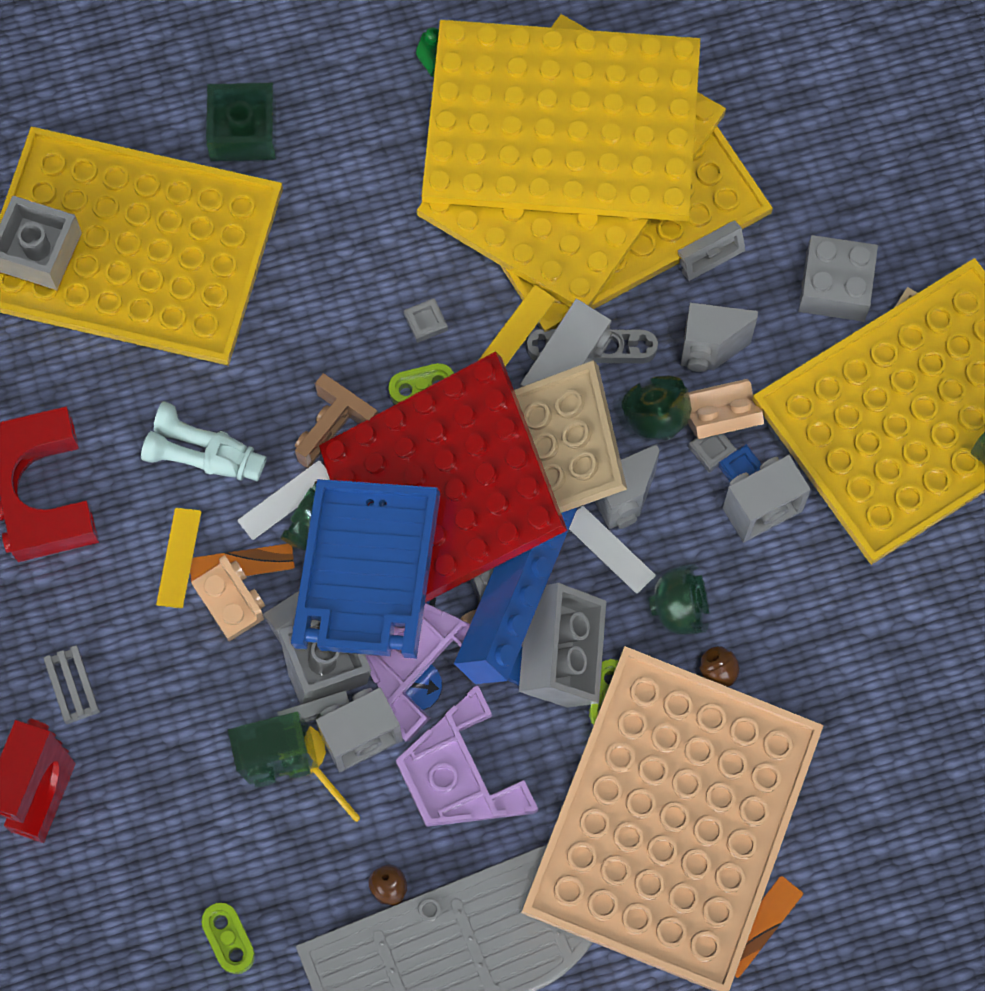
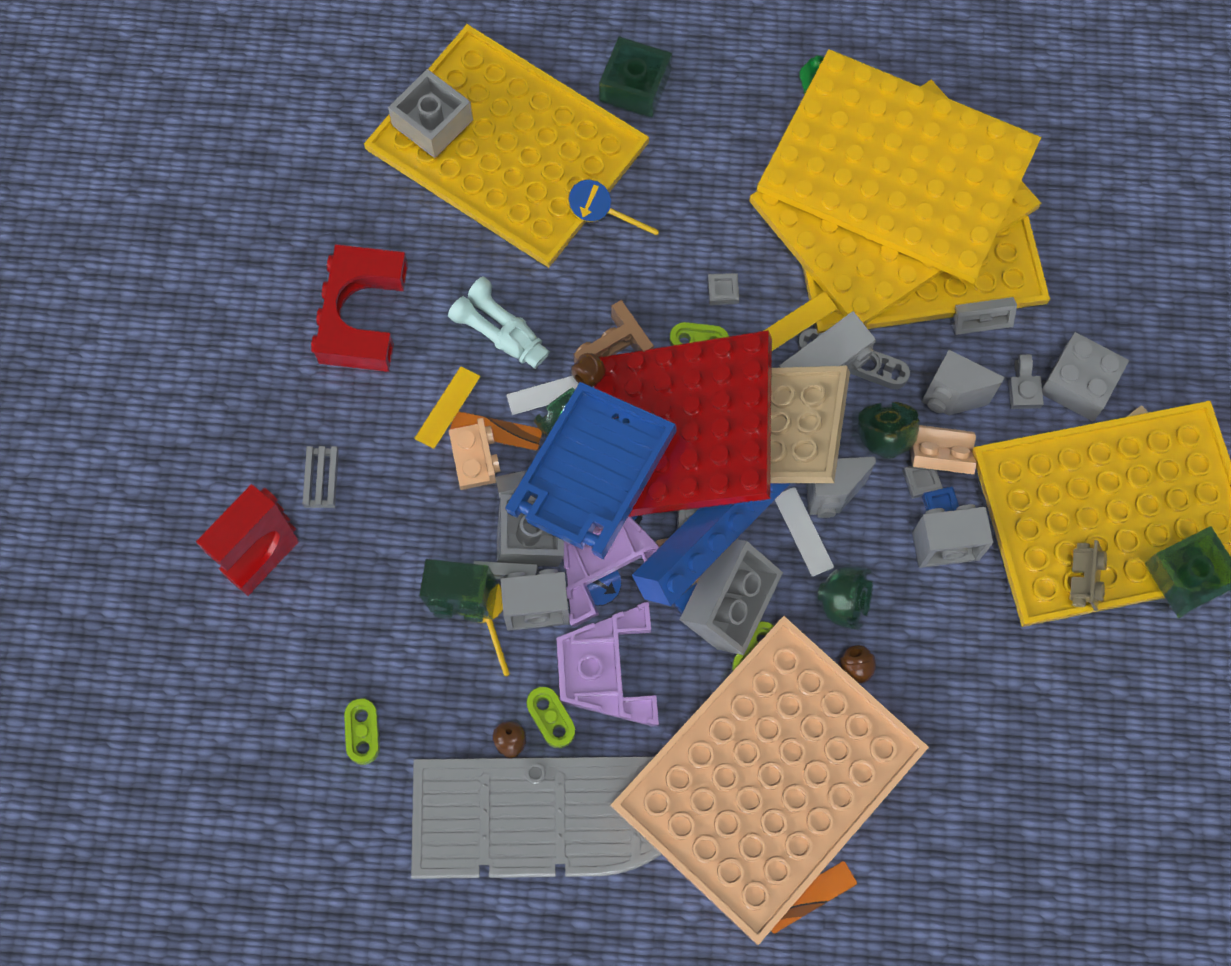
camera: 20 degrees right, 0 degrees up
(248, 277) = (592, 202): none -> blue piece
(318, 462) = (588, 369): none -> reddish brown piece
(423, 846) = (551, 718): none -> lime plate
(782, 312) = (1025, 389): none -> light grey plate
(916, 473) = (1090, 562): none -> dark tan hinge

